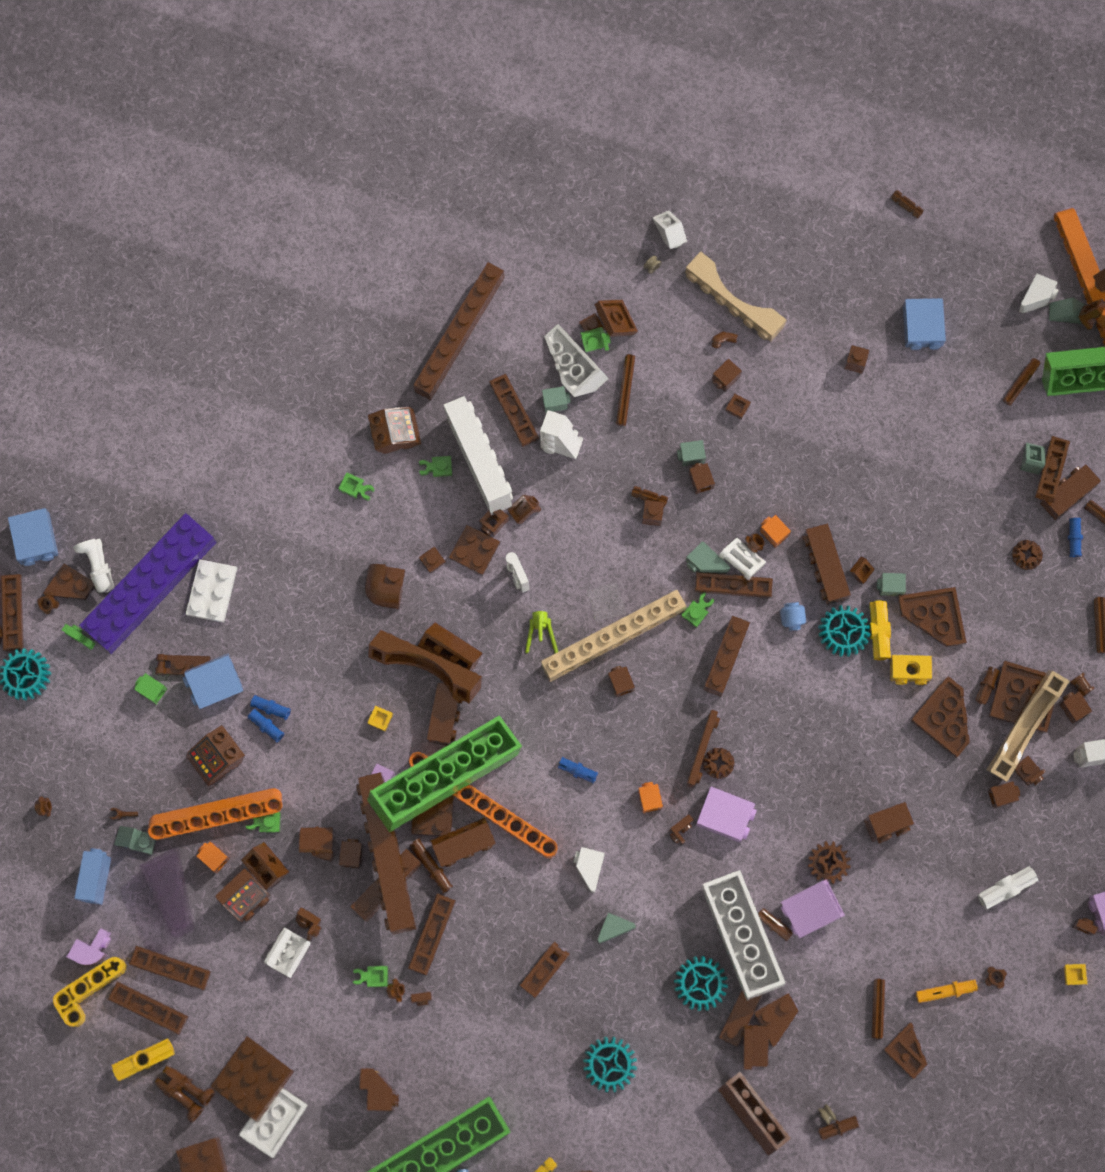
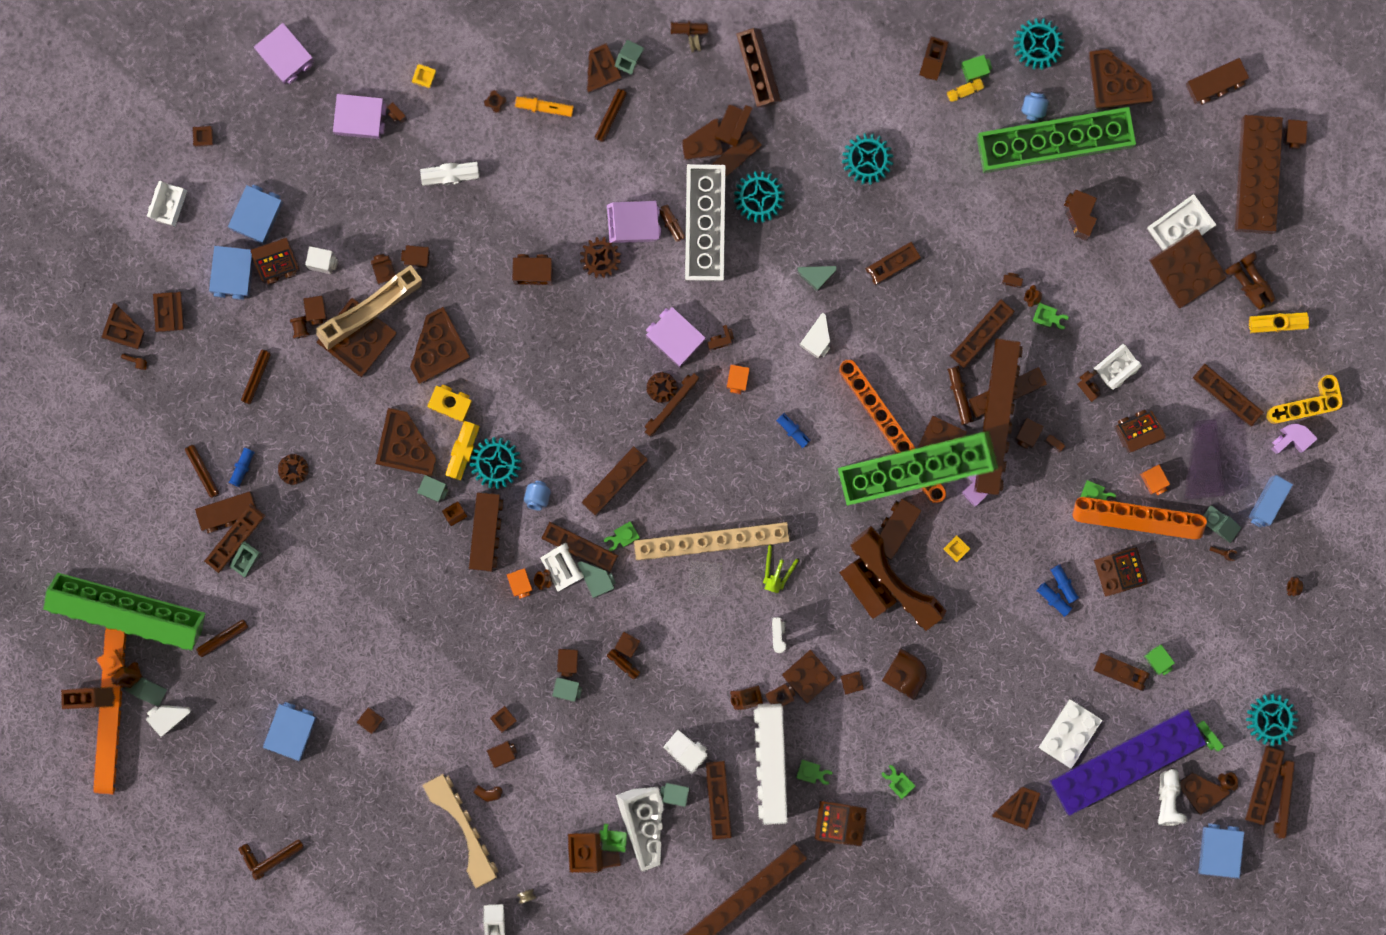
camera: 160 degrees left, 10 degrees up
(148, 1008) = (1259, 367): reddish brown plate -> none
(212, 681) = (1099, 642): medium blue brick -> none
(236, 505) = (1018, 808): none -> reddish brown wing
(265, 865) = (1110, 452): reddish brown brick -> none
(316, 839) = (1056, 458): reddish brown piece -> none
(463, 842) = (923, 404): reddish brown brick -> none
(621, 681) = (721, 497): reddish brown brick -> none
(625, 390) = (603, 779): reddish brown axle -> none
(885, 1073) = (629, 57): none -> sand green brick
(886, 213) = (277, 858): none -> reddish brown axle
(987, 685) = (386, 361): reddish brown axle -> none

